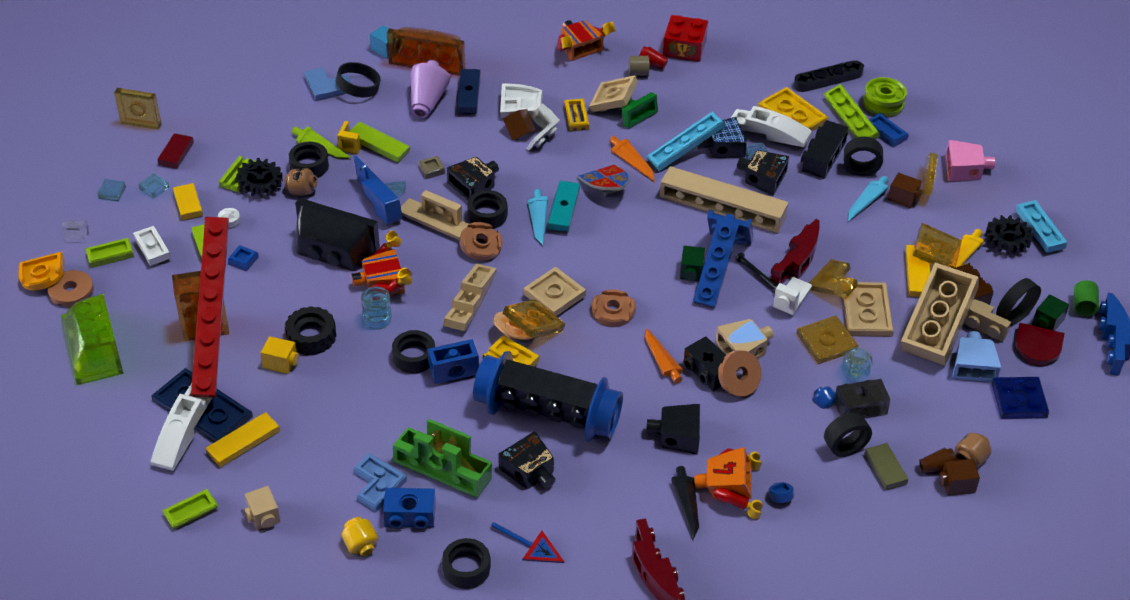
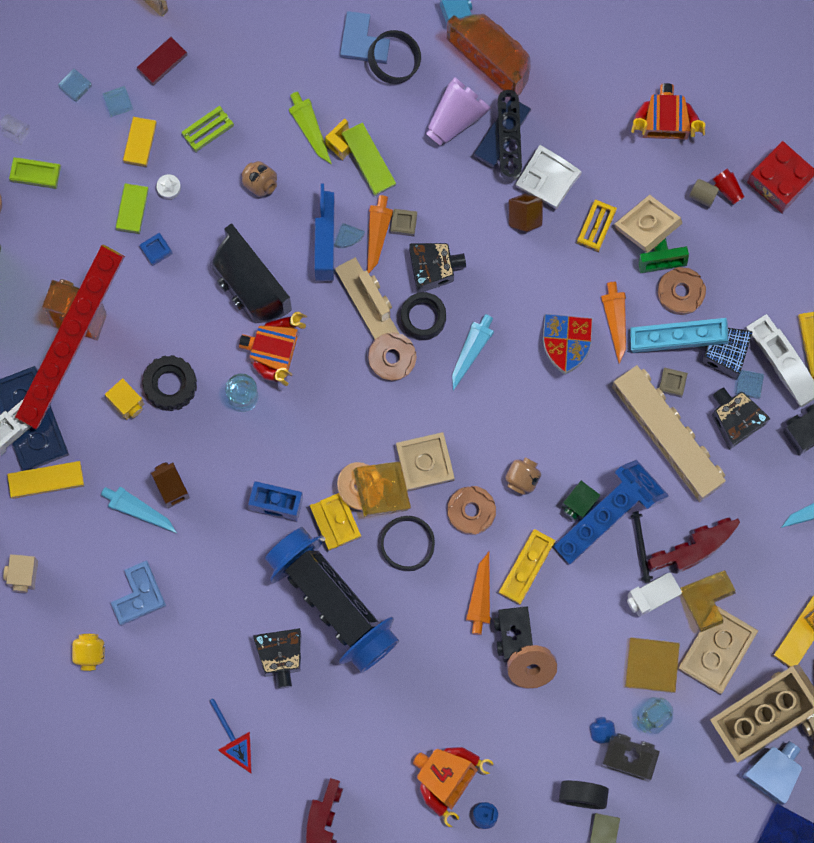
camera: 30 degrees right, 30 degrees up
(151, 245) = (76, 188): white plate -> none
(259, 177) = (230, 153): black gear -> none
(309, 149) = (276, 133): black tyre -> none
(324, 424) = (129, 504): none -> medium azure bar
(356, 387) = (170, 484): none -> reddish brown slope
(408, 339) = (250, 444): black tyre -> none
(409, 507) = (139, 632): blue brick -> none
(413, 175) = (378, 226): none -> orange bar
(443, 456) = (204, 609): bright green piece -> none
(463, 547) = (160, 712): black tyre -> none
(470, 297) = (341, 422): tan slope -> none
(478, 84) = (509, 135): none -> black beam
(547, 121) = (555, 223): white bracket -> none
(564, 206) = (511, 342): teal tile -> none
(579, 365) = (413, 519): none -> black tyre
(637, 267) = (523, 476): none -> medium nougat head
(655, 125) = (678, 304): none -> nougat tile
(678, 427) = (437, 691): black torso -> none
(682, 322) = (527, 567): none -> yellow tile
(686, 493) = (399, 770): black bar -> none
(703, 170) = (673, 382): none -> dark tan tile
(744, 336) = (566, 627): tan torso -> none

